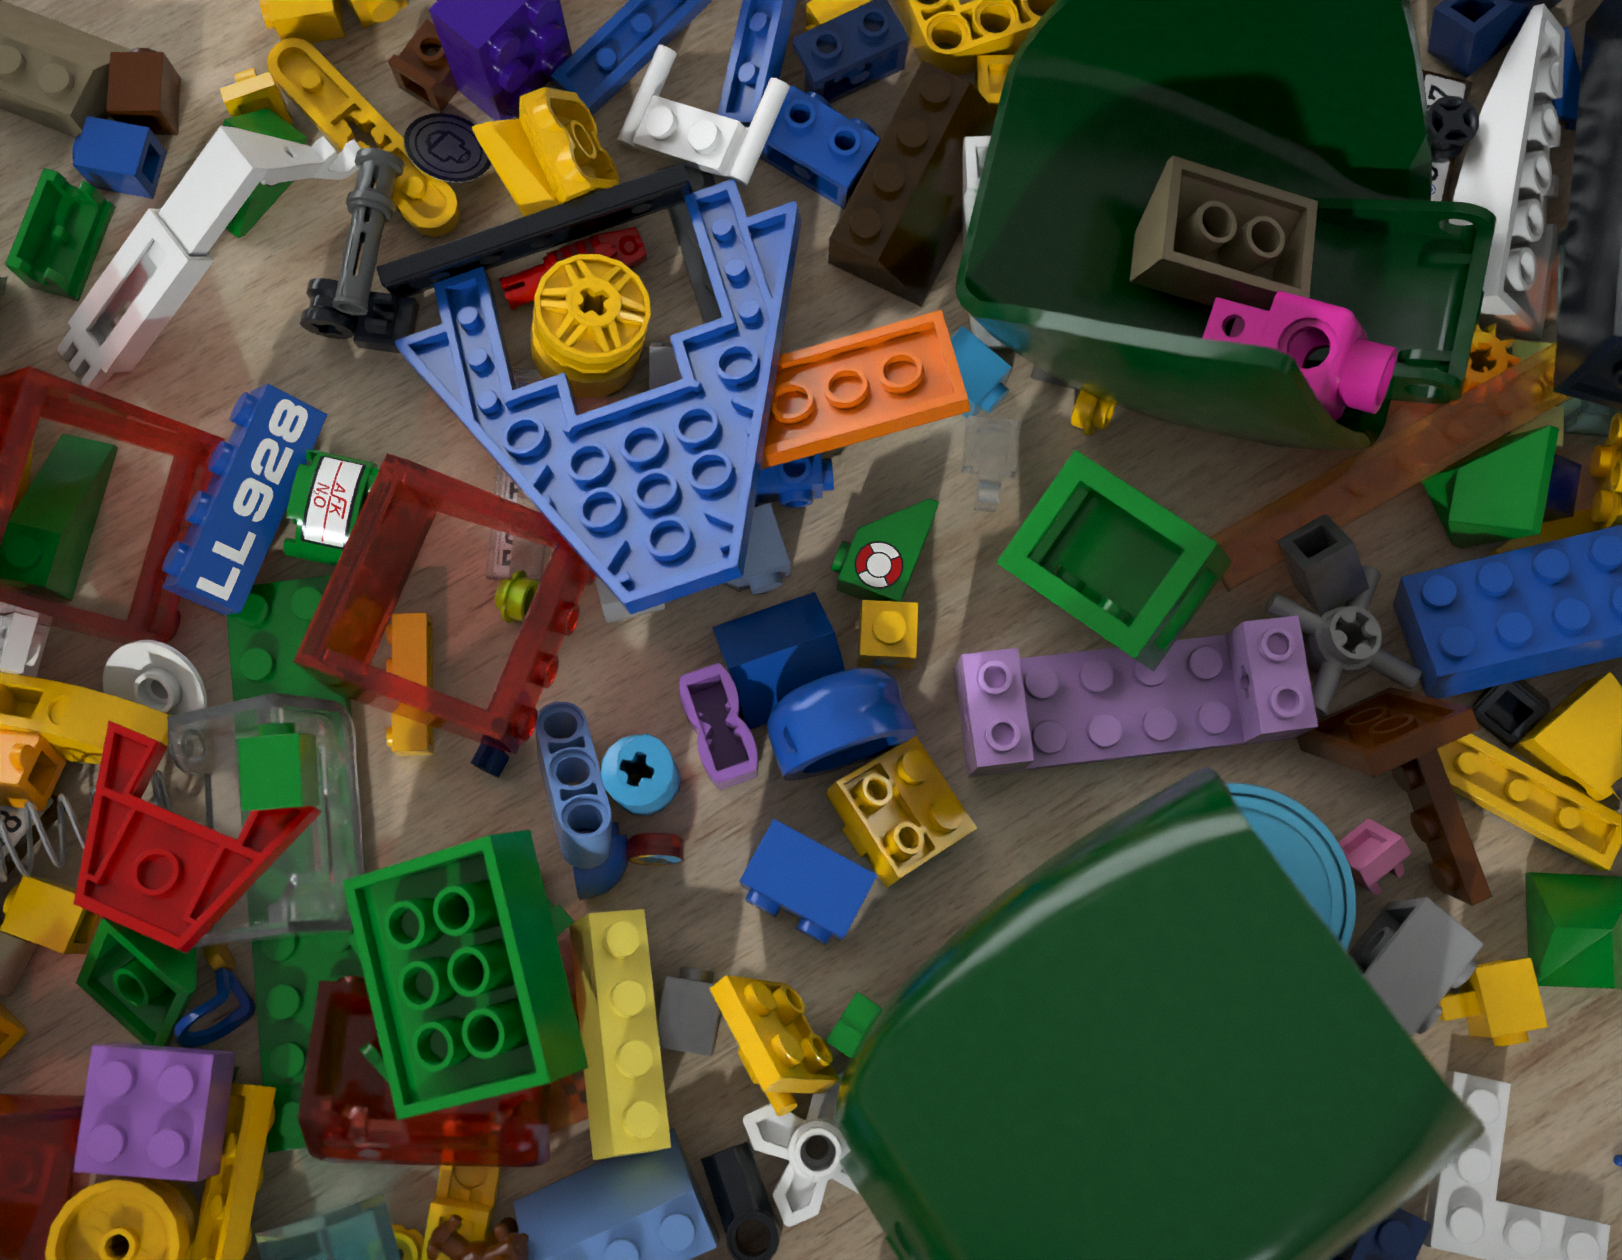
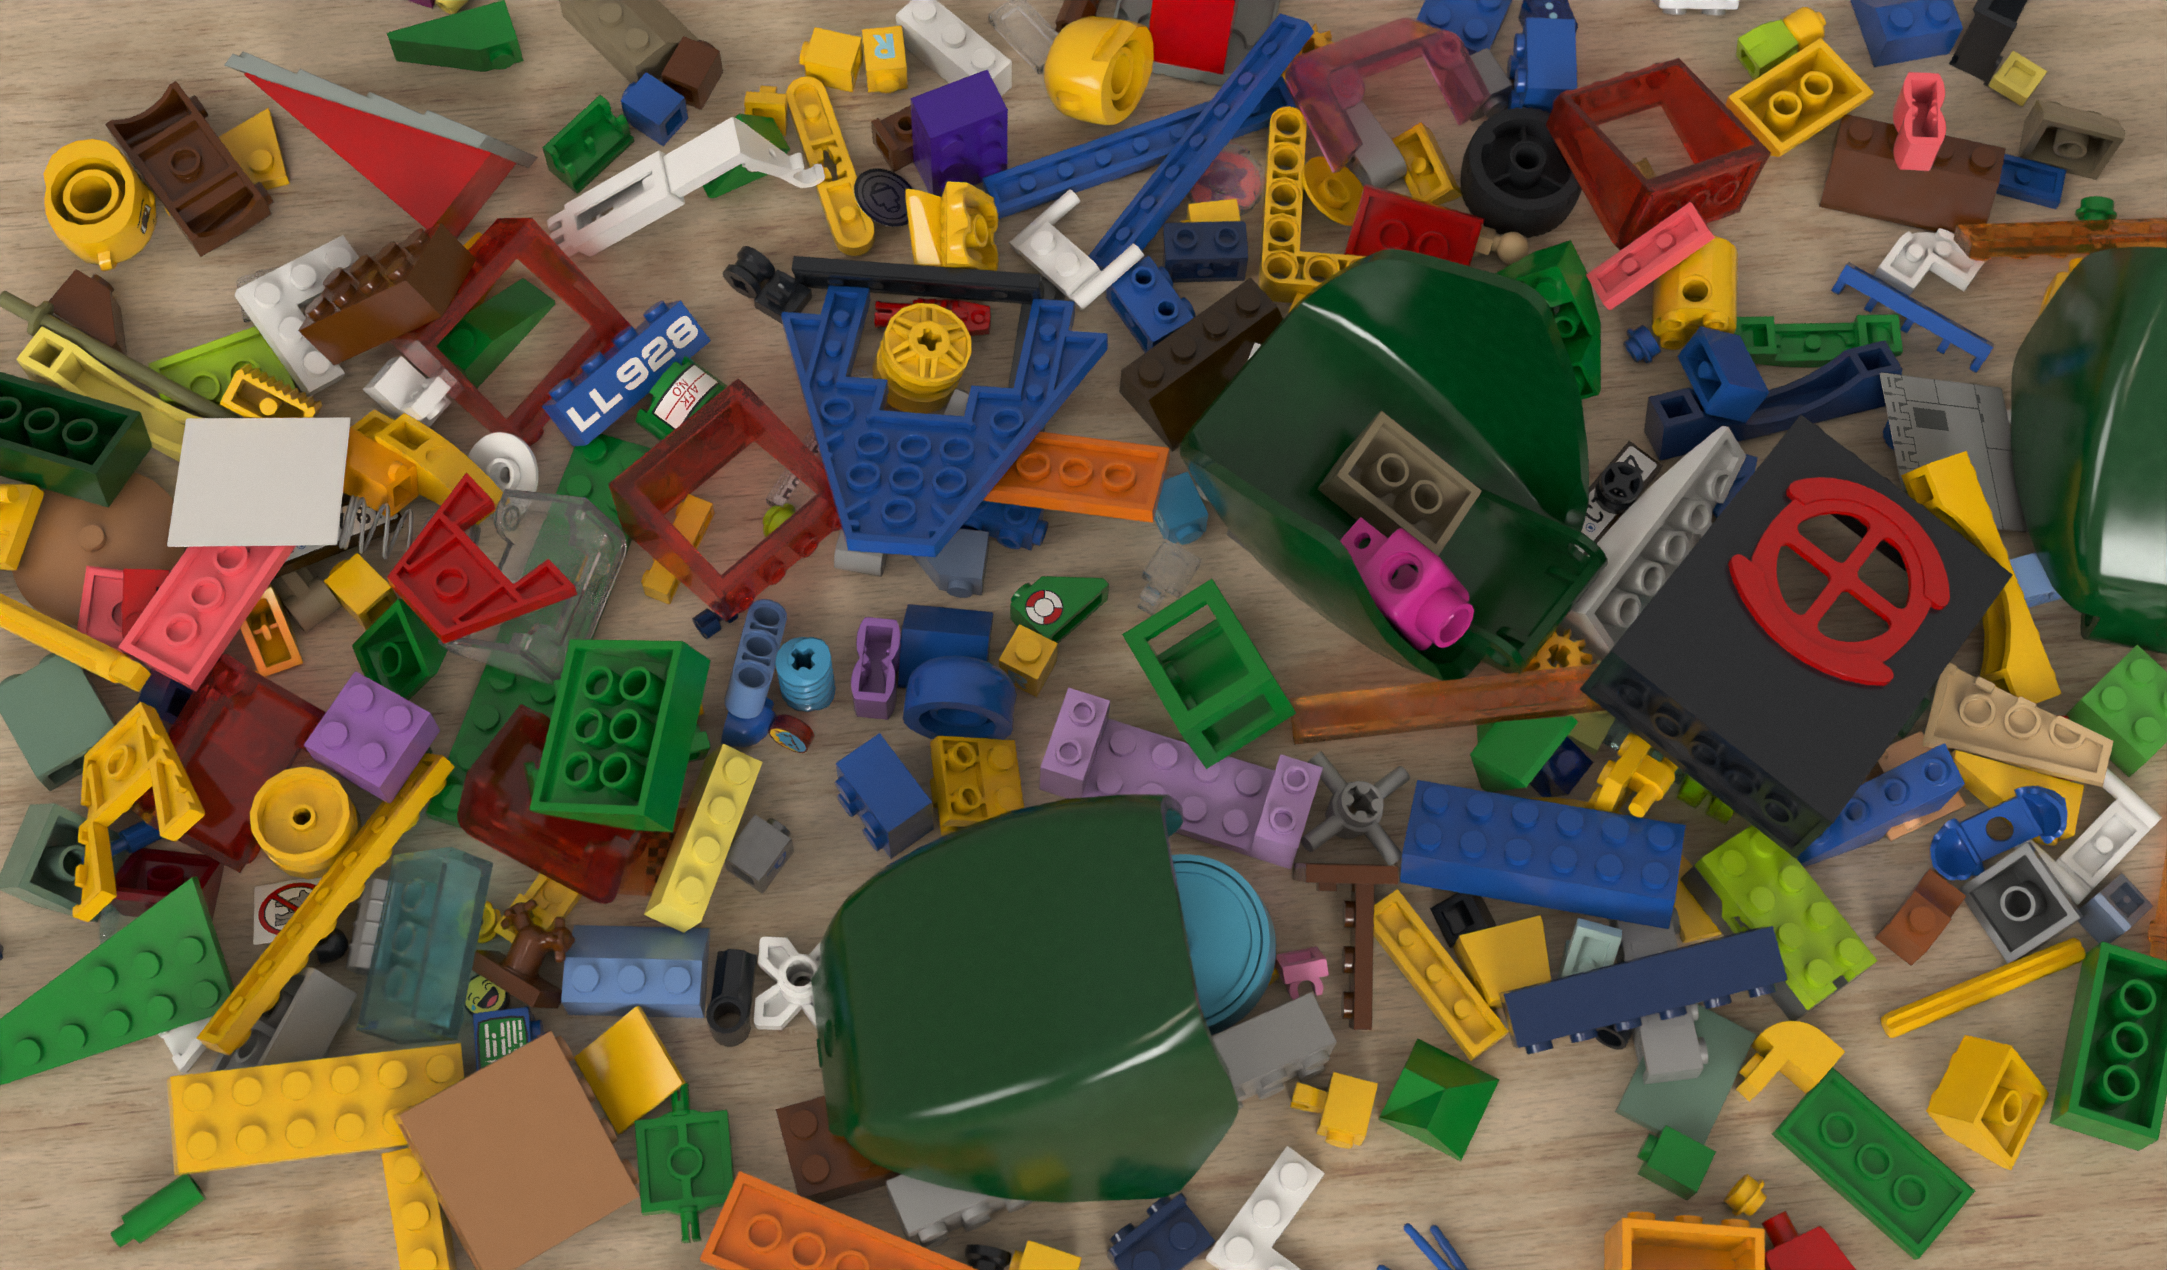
camera: 25 degrees right, 10 degrees down
(223, 964) = (457, 677): blue piece -> none
(278, 768) = (564, 547): green brick -> none
(376, 208) = (809, 215): dark grey pin -> none
(775, 1039) = (807, 885): yellow plate -> none
(1091, 413) = (1254, 576): yellow plate -> none
(1323, 564) = (1364, 747): flat silver brick -> none

